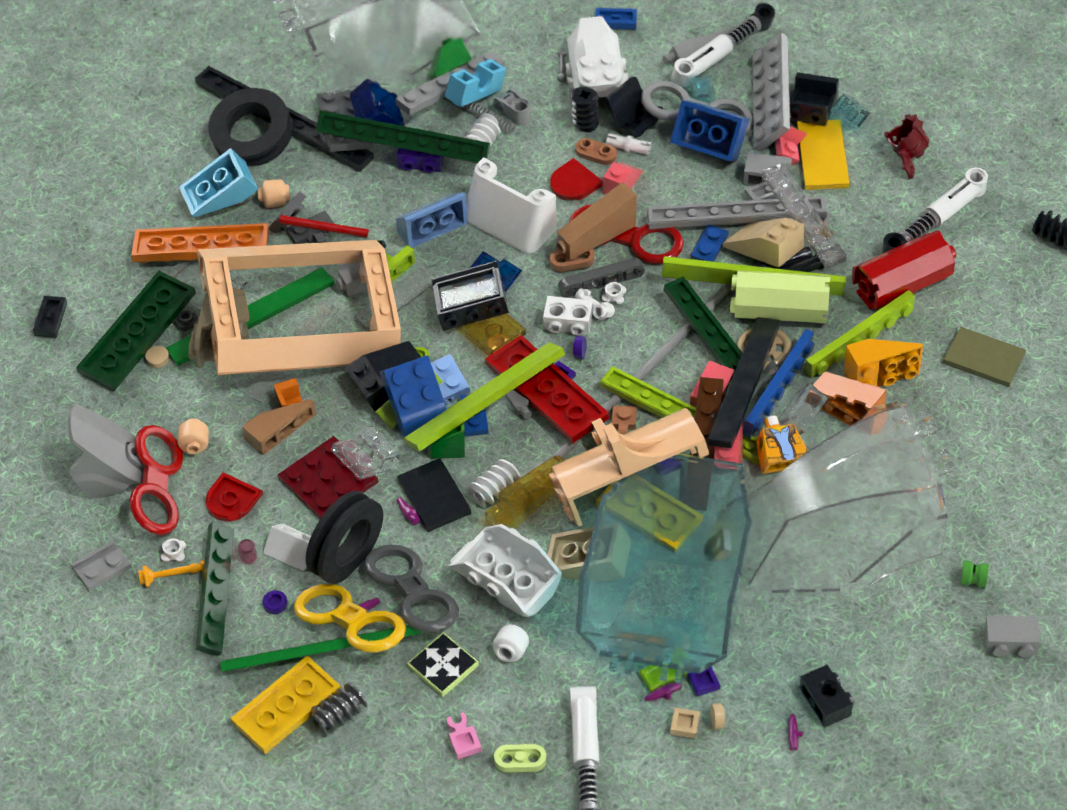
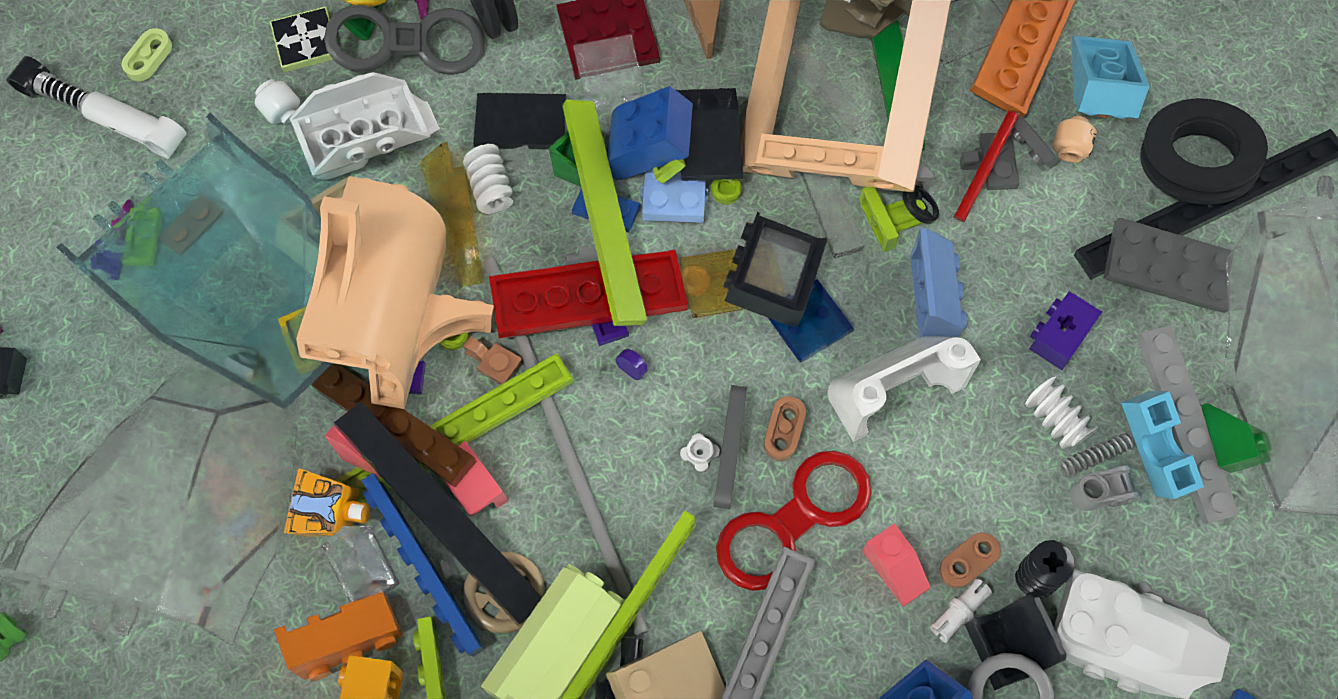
camera: 115 degrees right, 15 degrees up
(287, 392) = (736, 34): orange panel -> none
(376, 103) = (1164, 296): clear blue container -> none
(402, 137) = (1083, 299): dark green plate -> none
(409, 512) = (511, 86): magenta piece -> none
(463, 738) = (205, 16): bright pink plate -> none
(568, 315) = (693, 376): white brick -> none
(574, 181) = (927, 502): red tile -> none
(599, 222) = (807, 470): medium nougat slope -> none
(600, 310) = (674, 419): white bar -> none
(685, 723) = (67, 218): tan plate -> none
(703, 322) = (571, 526): dark green plate -> none
(710, 244) = (716, 619): blue plate -> none
(717, 716) = (47, 251): tan tile -> none

